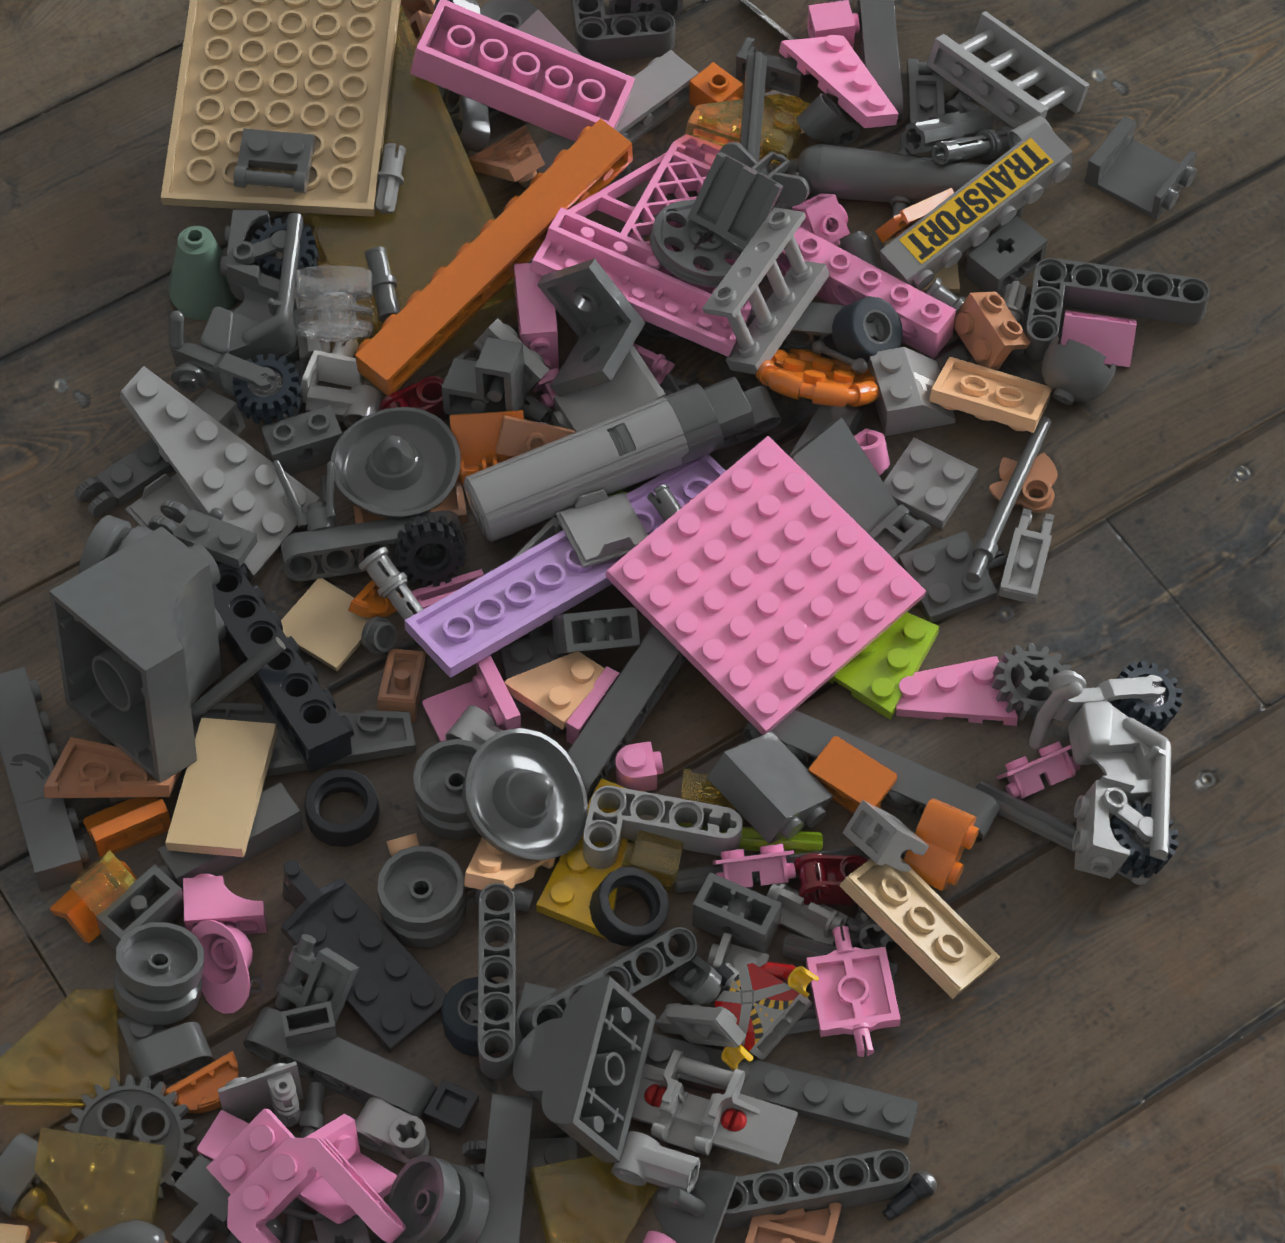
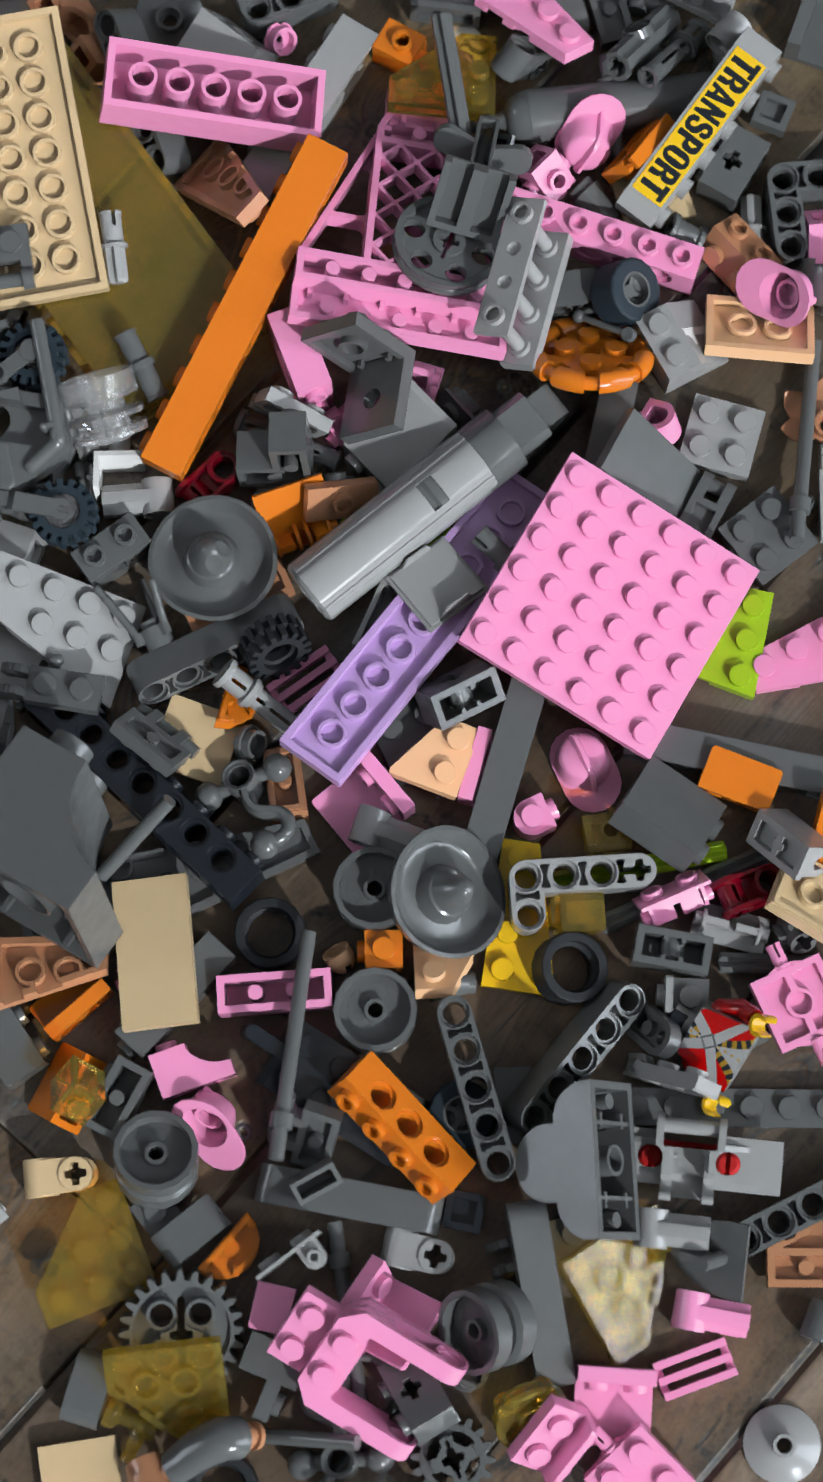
camera: 15 degrees left, 20 degrees up
(56, 971) = (53, 1176): none -> tan piece
(286, 600) = (154, 739): none -> dark grey plate
(294, 949) = (282, 1119): none -> dark grey bar
(327, 853) = (270, 993): none -> bright pink brick
(363, 675) = (276, 769): none -> dark grey piece
(411, 999) = (421, 1145): none -> orange brick
(450, 837) = (381, 950): none -> orange brick
(611, 55) = (287, 40): none -> bright pink plate
(701, 735) = (585, 769): none -> bright pink piece
(876, 191) = (591, 131): none -> bright pink piece
(1013, 359) = (774, 291): none -> bright pink piece
(1059, 222) = (772, 113): none -> dark grey plate

